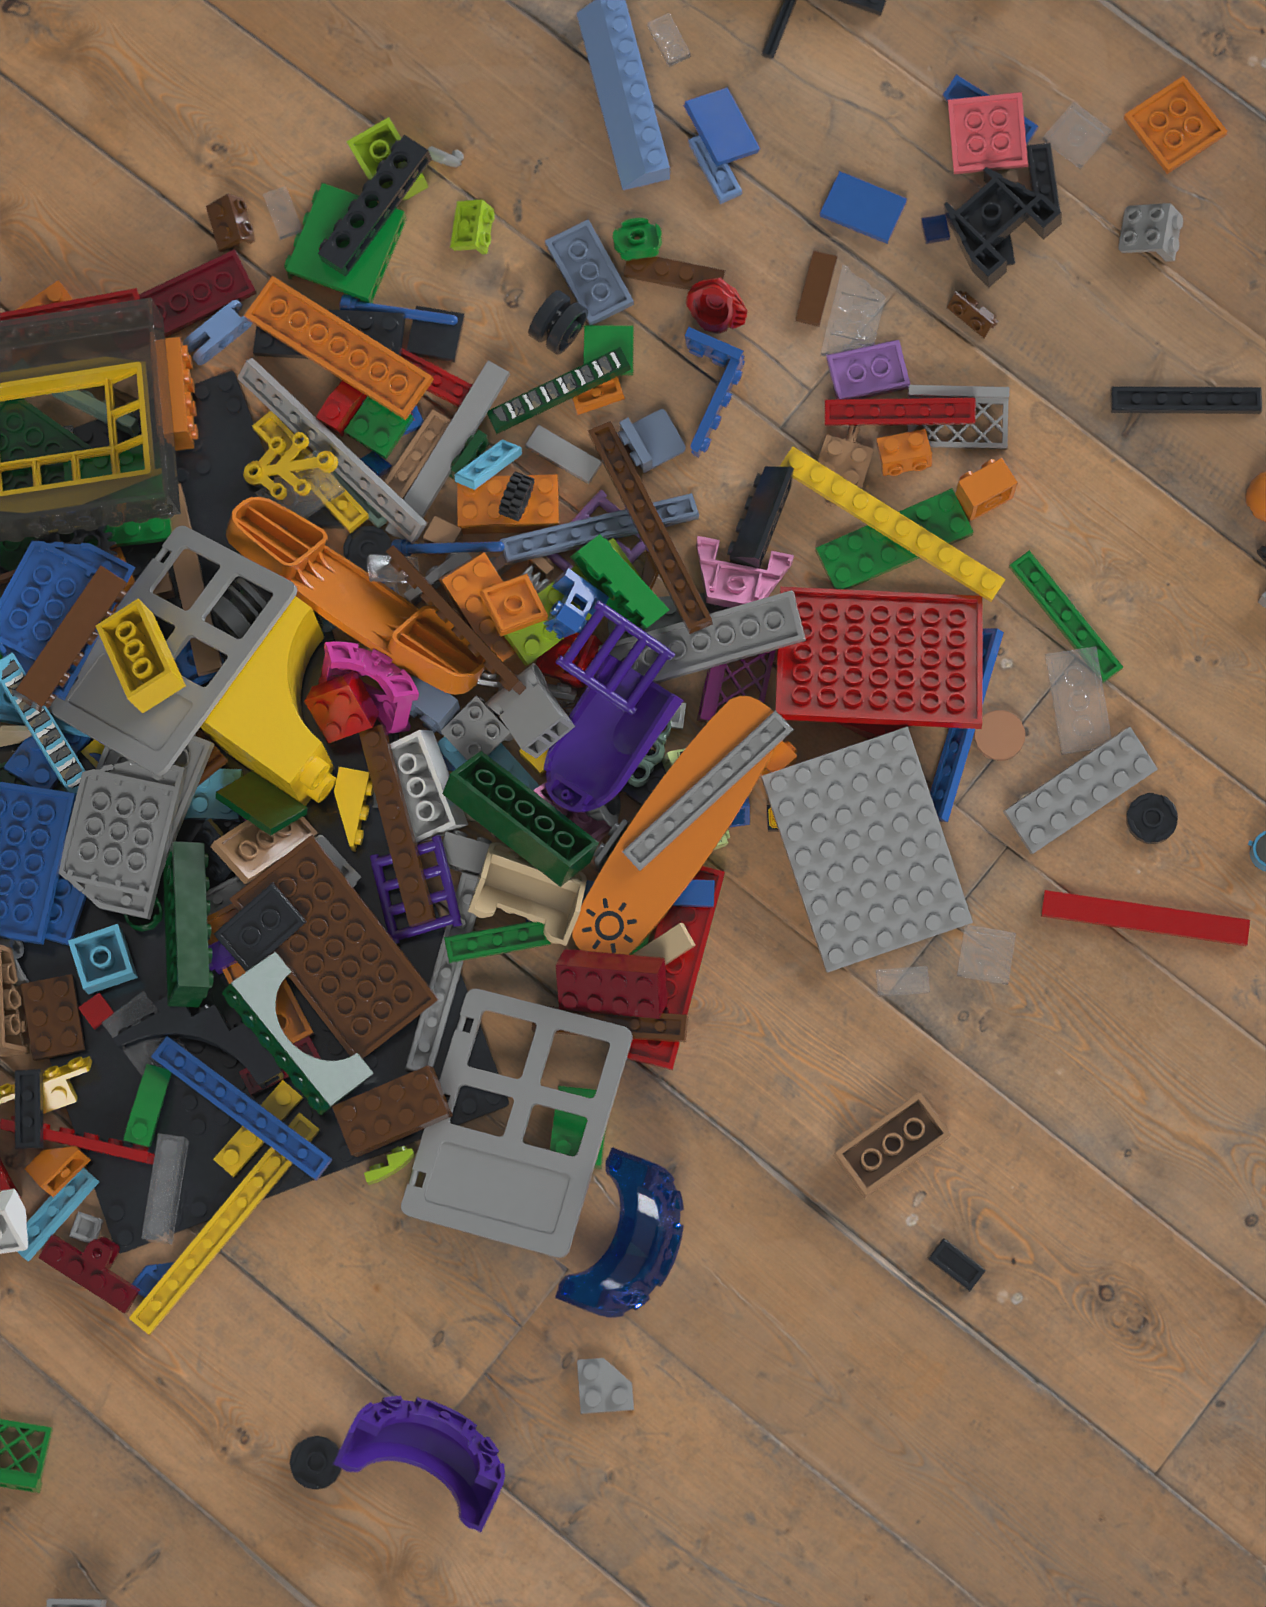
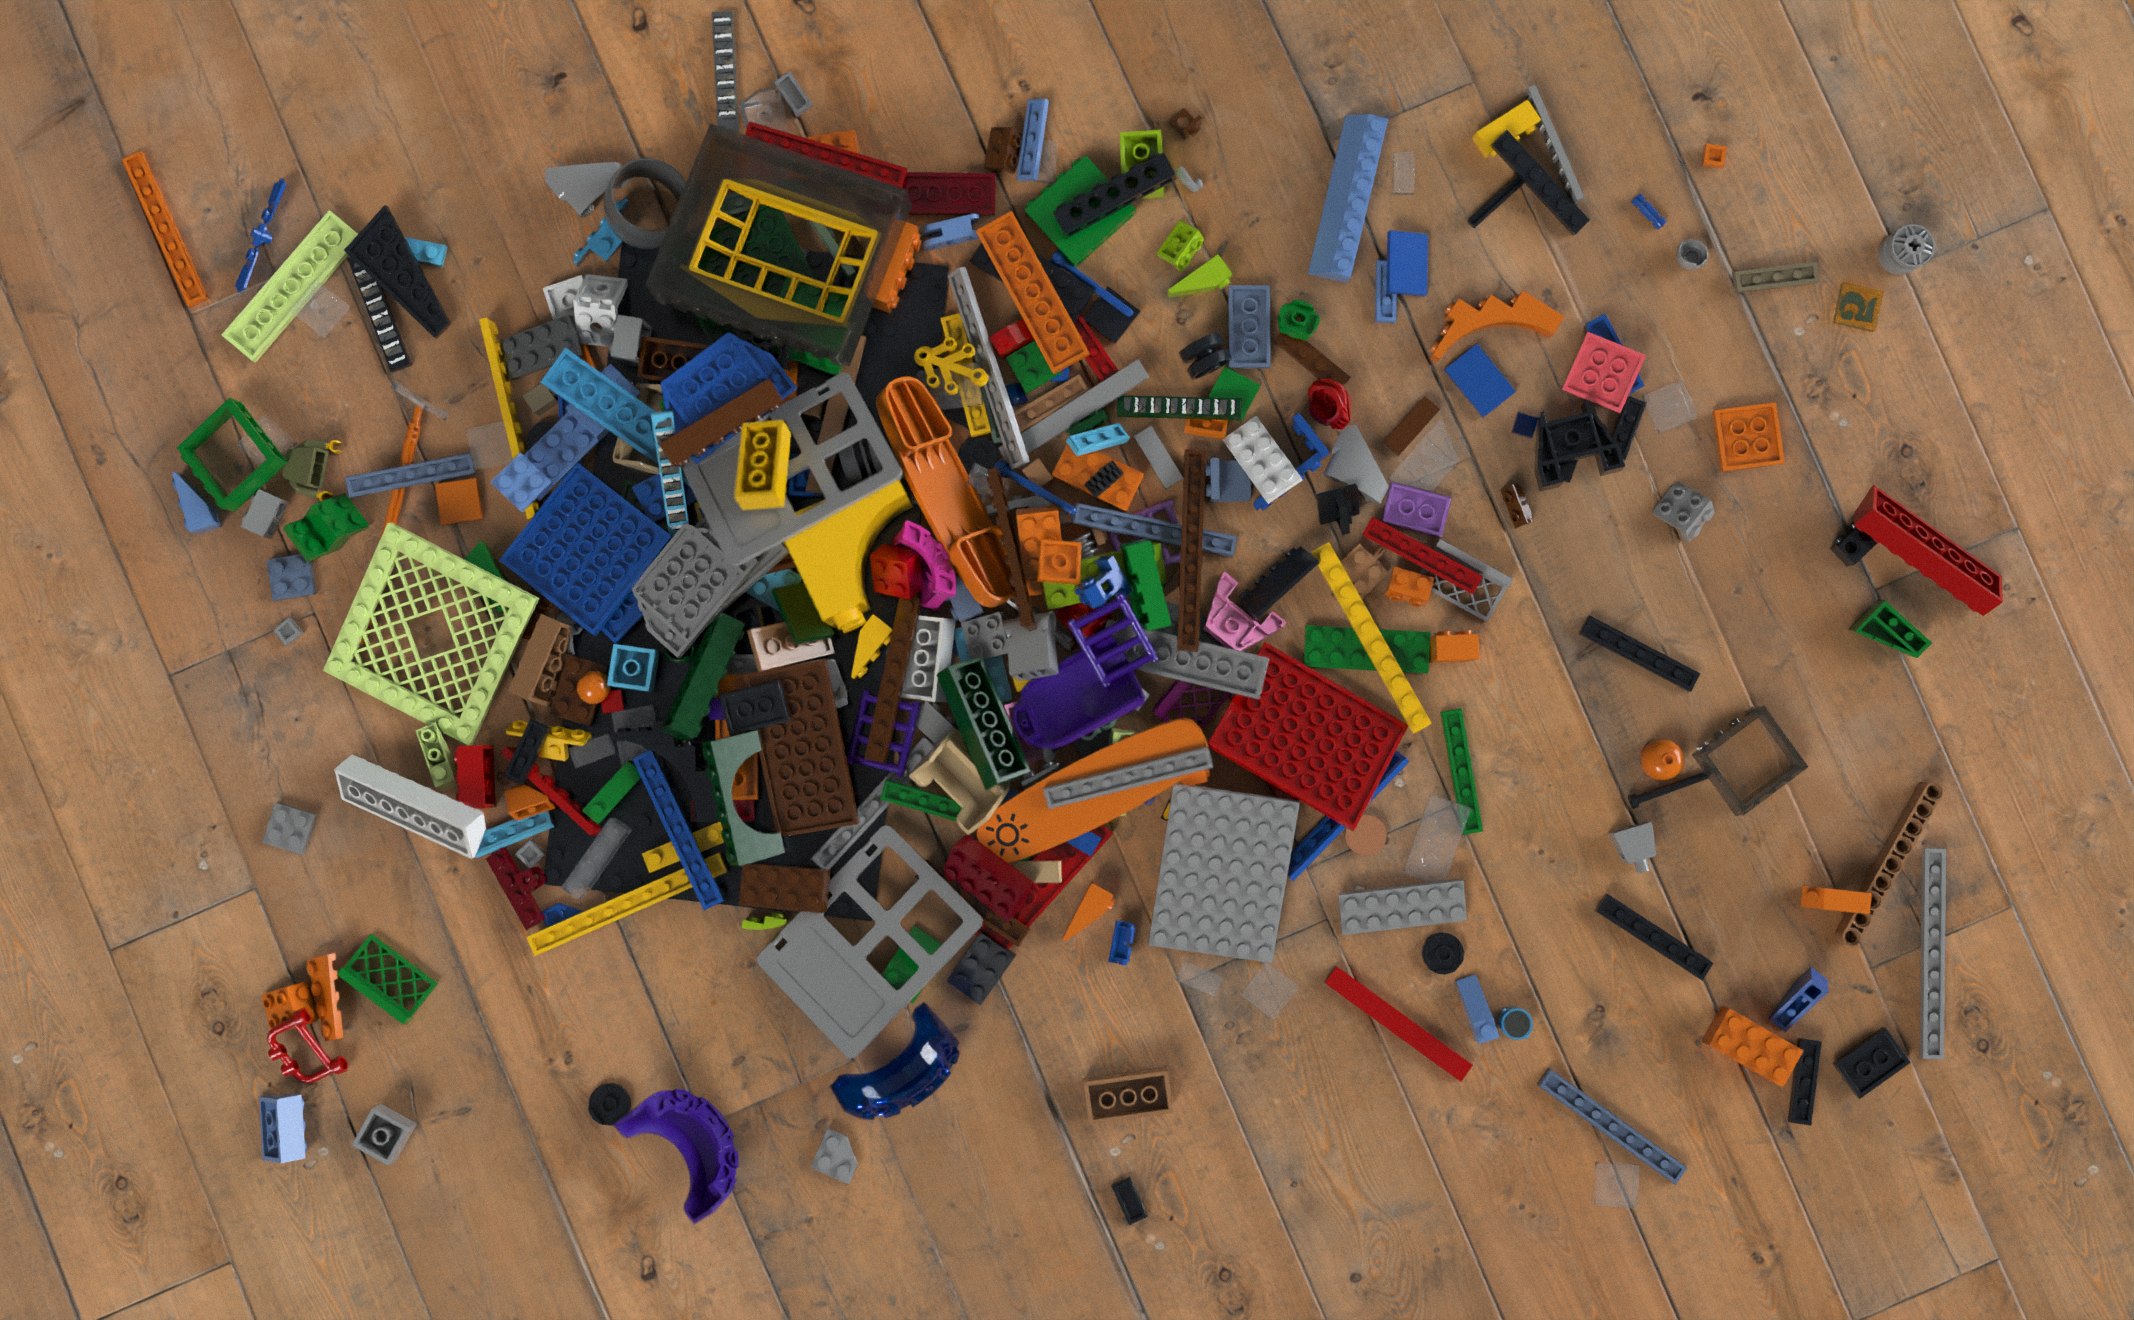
camera: 25 degrees right, 10 degrees up
(68, 1002) = (593, 687): none -> orange hair
(100, 1076) = (592, 751): none -> clear tile
(256, 197) = (1032, 139): none -> medium blue tile
(420, 104) = (1191, 129): none -> reddish brown bracket
(516, 247) = (1206, 278): none -> lime slope
(656, 1091) = (981, 967): none -> black plate
(676, 398) = (1262, 459): none -> white plate
(743, 964) = (1091, 907): none -> orange slope
(780, 355) = (1355, 465): none -> light grey panel
(783, 406) = (1338, 506): none -> black bracket
(799, 994) = (1122, 936): none -> blue hinge
(868, 117) = (1524, 313): none -> orange arch
(1221, 858) = (1477, 1009): none -> medium blue slope

